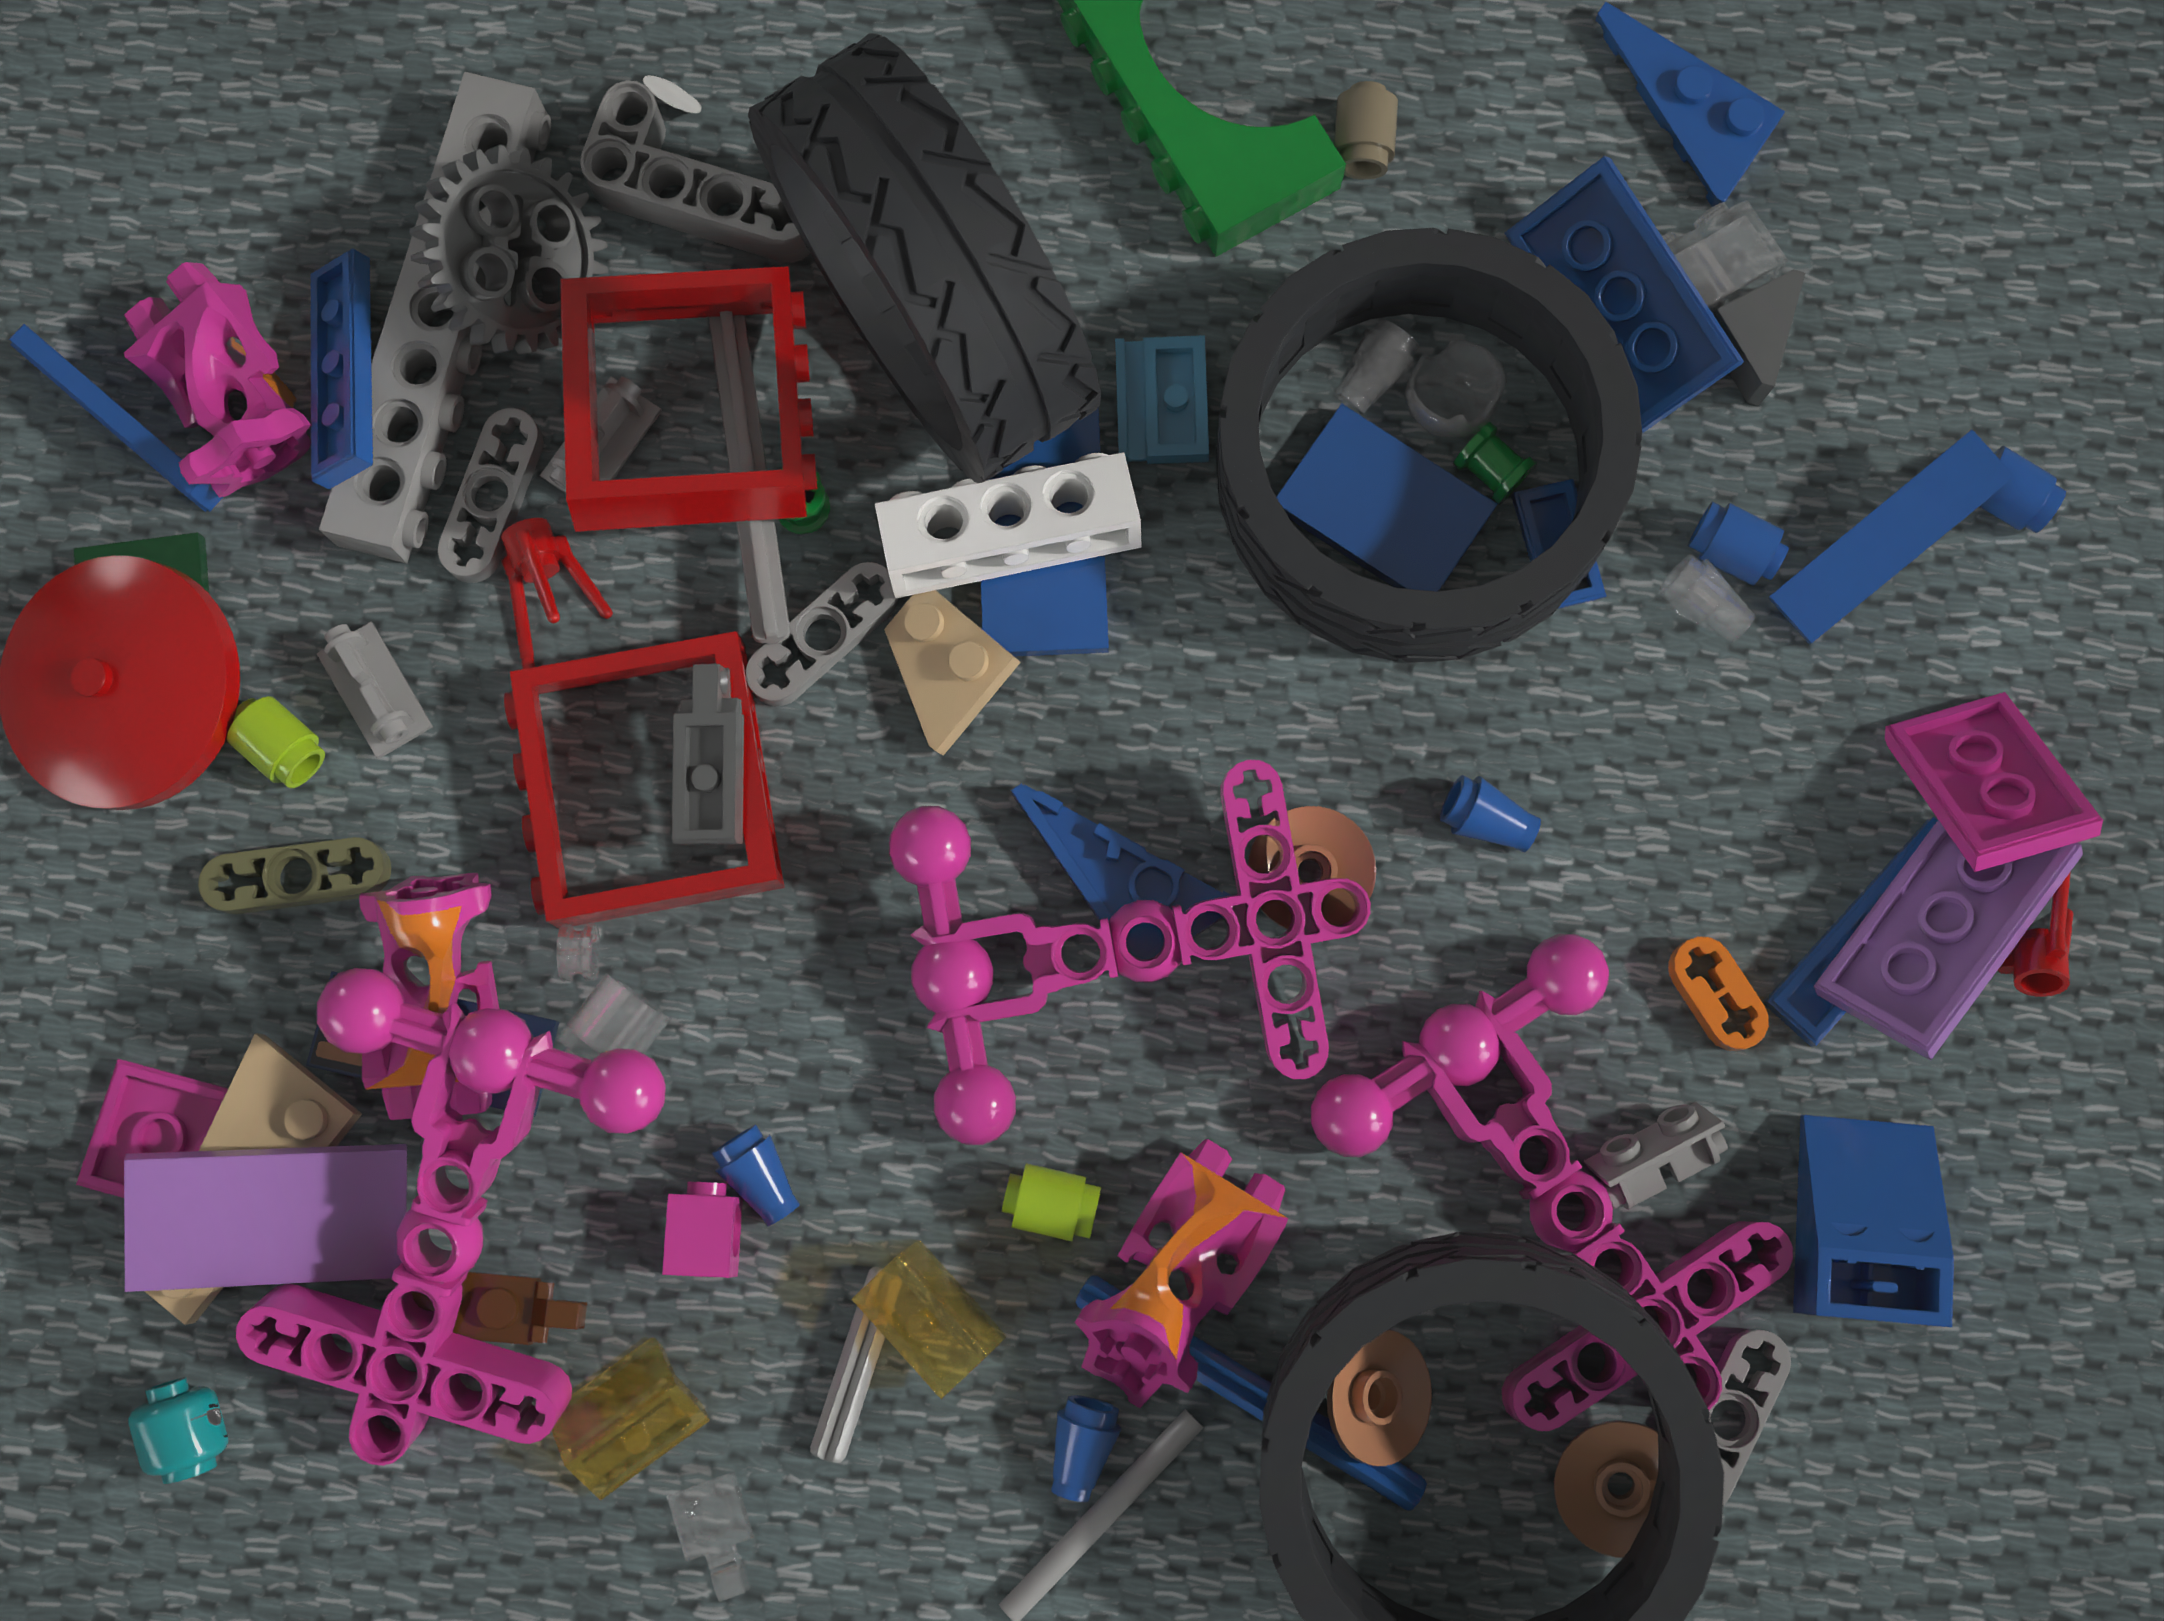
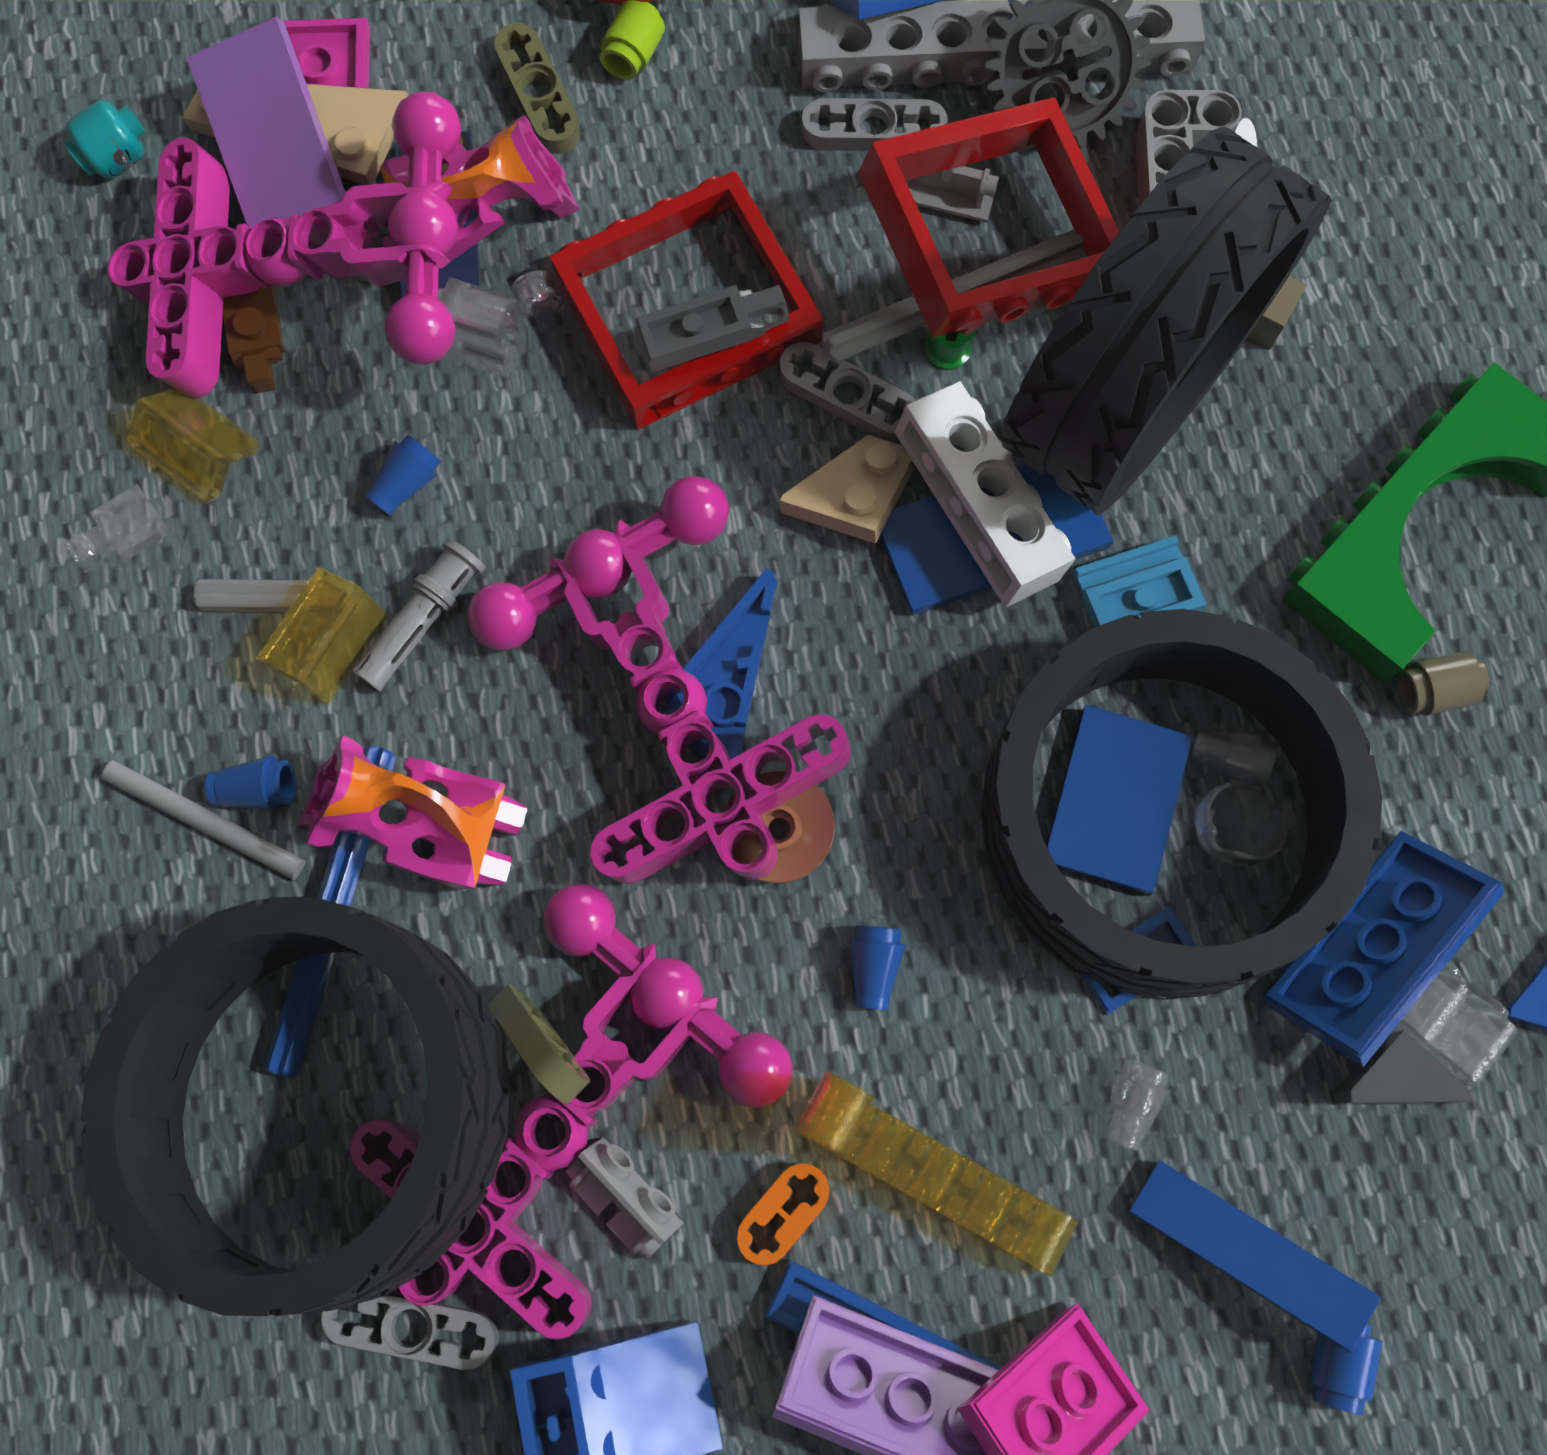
camera: 70 degrees right, 5 degrees down
(373, 688) = (697, 92): light grey hinge -> none
(535, 557) = (834, 168): red plant -> none
(703, 1232) = (344, 448): dark pink brick -> none
(918, 1177) = (433, 595): none -> light grey pin
(1051, 1202) = (440, 701): lime brick -> none
(1381, 1401) = (343, 1032): nougat dish -> none
(1483, 1193) = (539, 1044): none -> olive beam
(1494, 463) = (1188, 879): green bush -> none
(1581, 1478) = (310, 1217): nougat dish -> none
(1672, 882) = (943, 1180): none -> clear yellow beam
(1739, 543) = (1197, 1116): blue brick -> none

